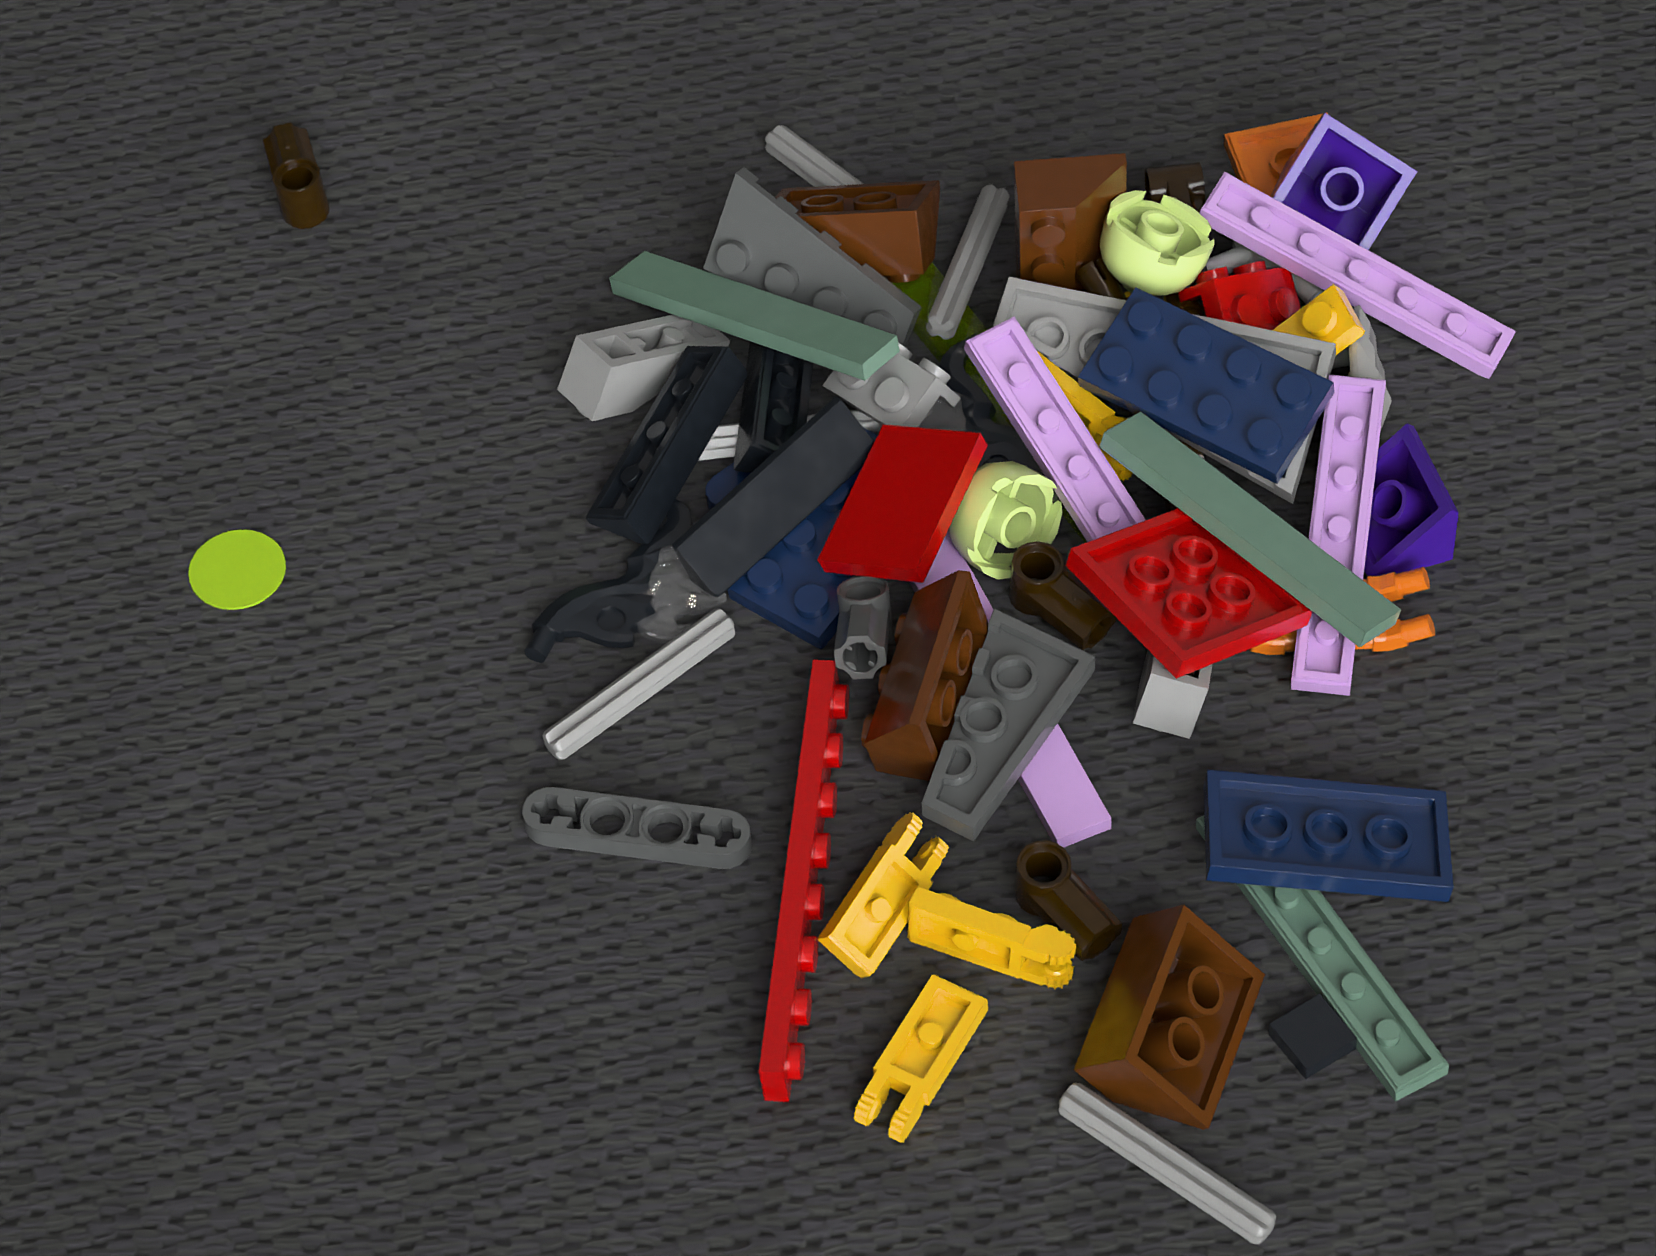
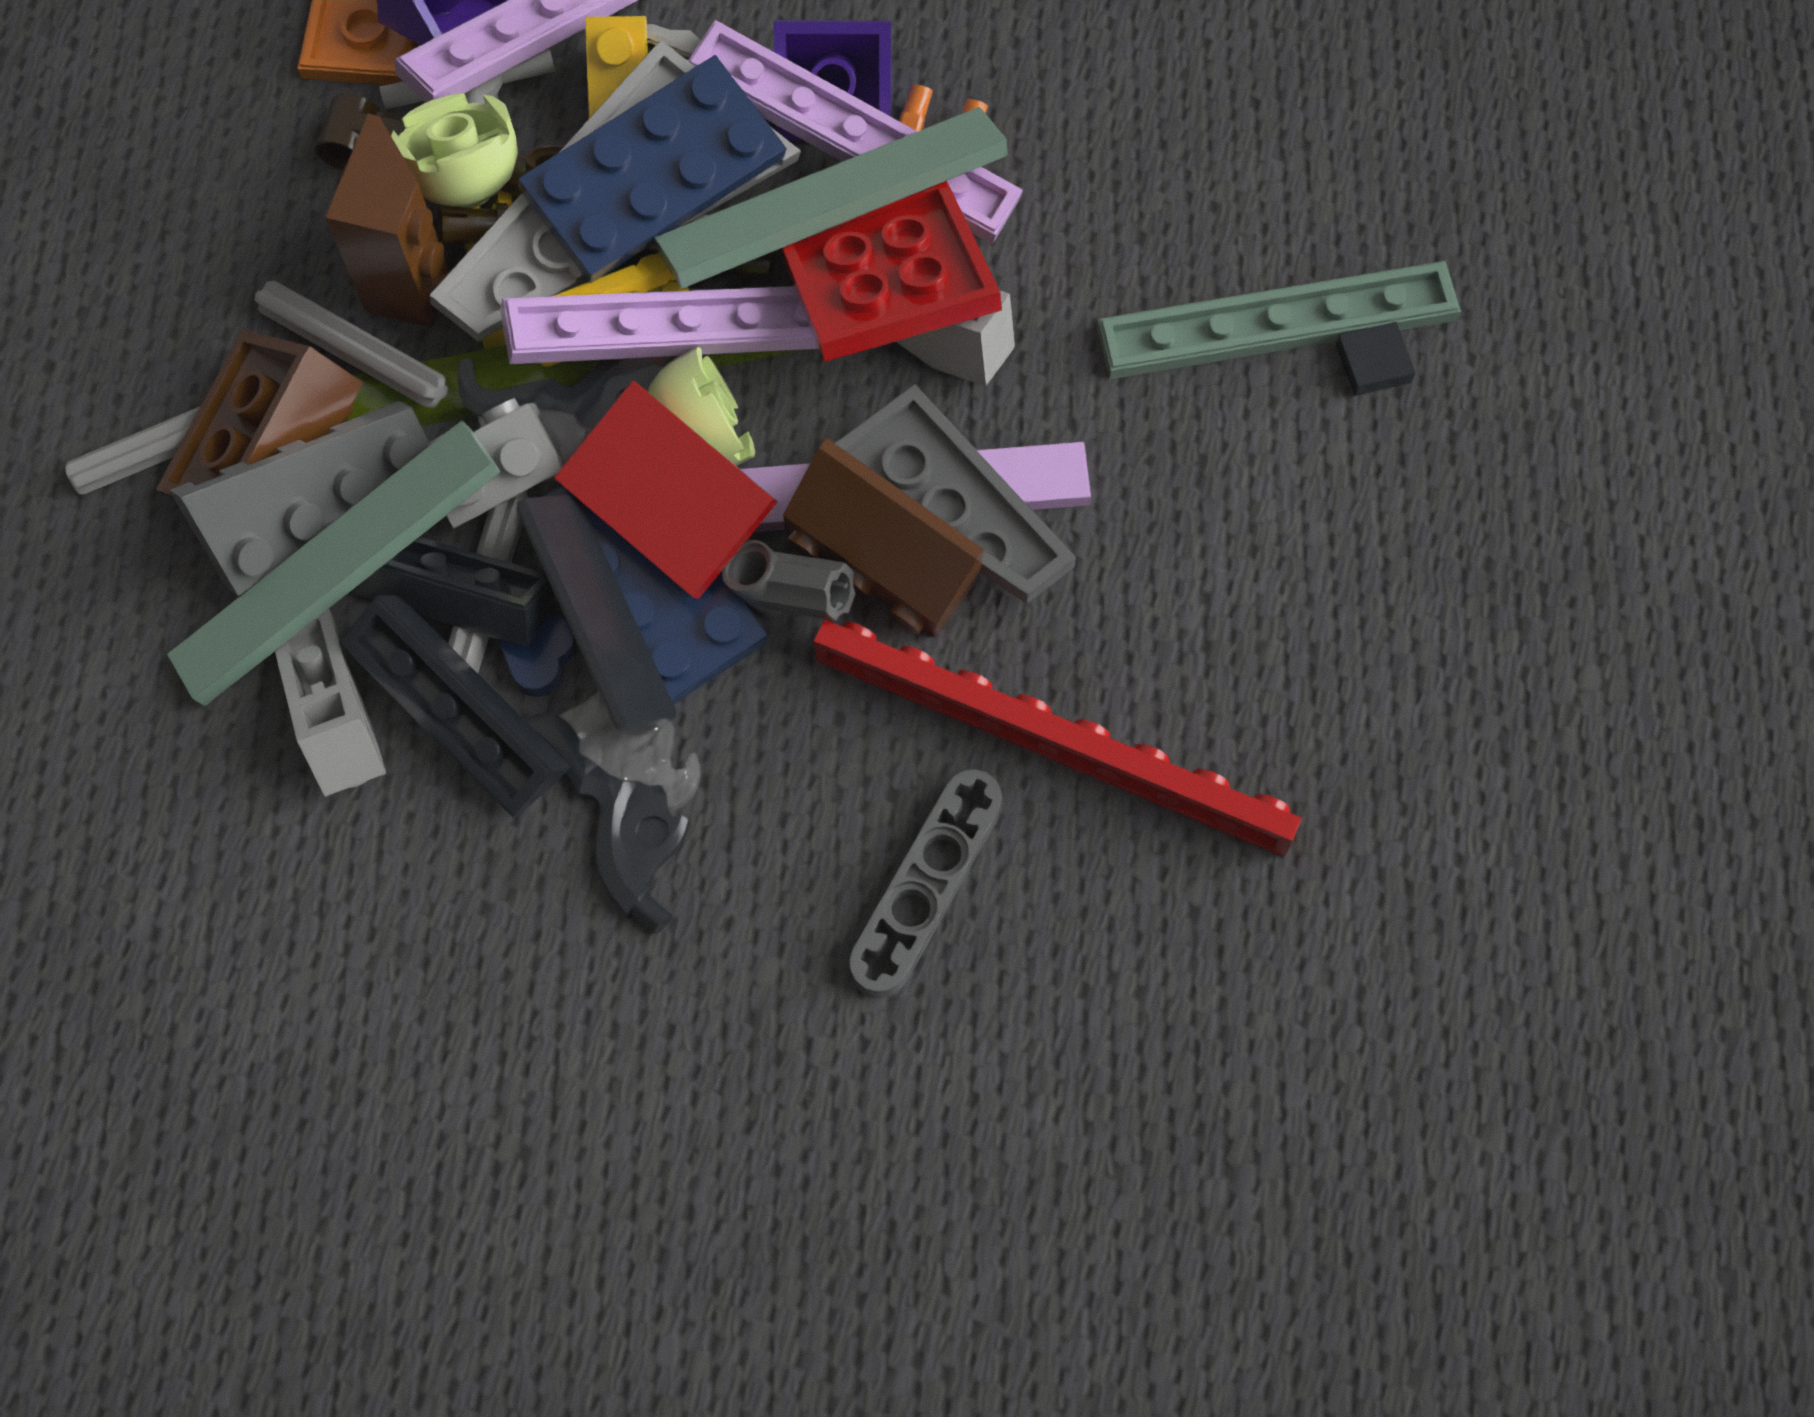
camera: 75 degrees left, 15 degrees up
(237, 569) = (399, 1220): lime piece -> none
(638, 684) = (746, 829): light grey axle -> none
(880, 898) = (1103, 667): yellow hinge -> none
(922, 1053) = (1293, 693): yellow hinge -> none
(991, 939) = (1186, 589): yellow hinge -> none
(1057, 596) = (812, 398): dark brown piece -> none
(1065, 900) = (1170, 509): dark brown piece -> none
(1167, 1163) = (1471, 523): light grey axle -> none
(1170, 1018) = (1326, 467): reddish brown slope -> none
(1248, 297) = (540, 106): red bracket -> none
(1327, 836) = (1183, 267): dark blue plate -> none

